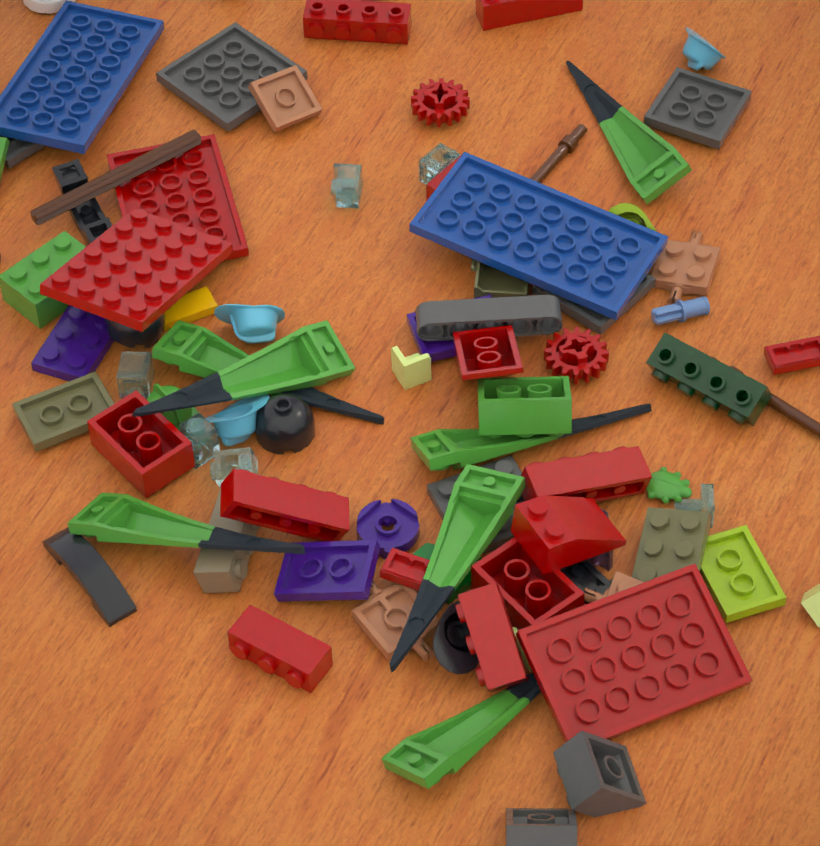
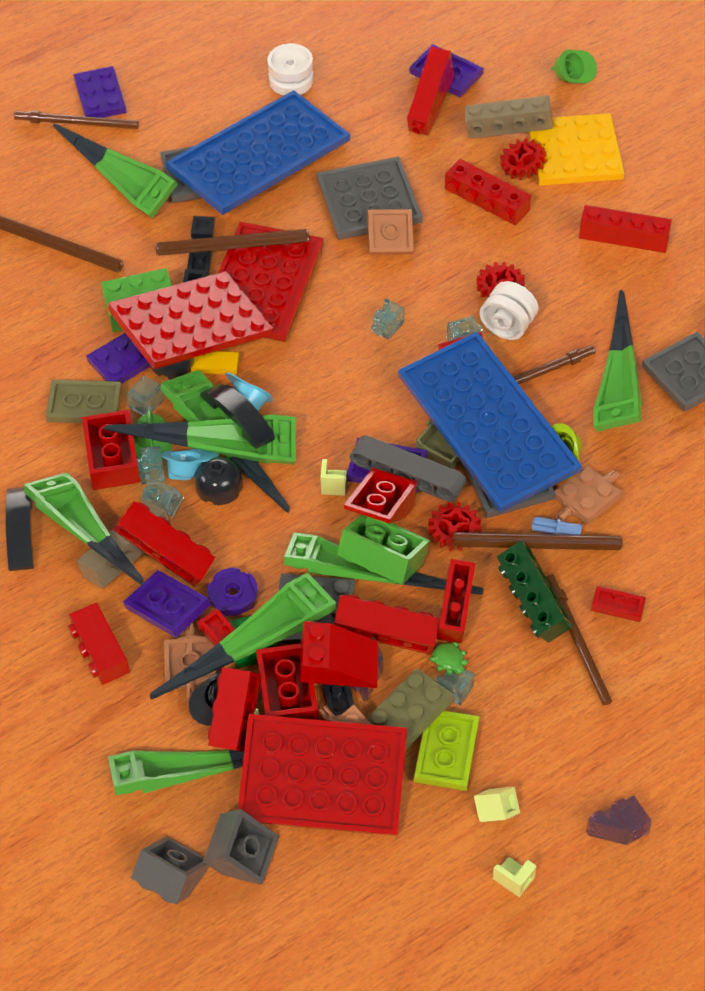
camera: 30 degrees right, 5 degrees up
(267, 336) = (242, 412): none -> black slope
(476, 121) = (509, 310): none -> white wheel
(639, 420) = (456, 600): none -> red brick
(677, 329) = (537, 541): none -> reddish brown axle

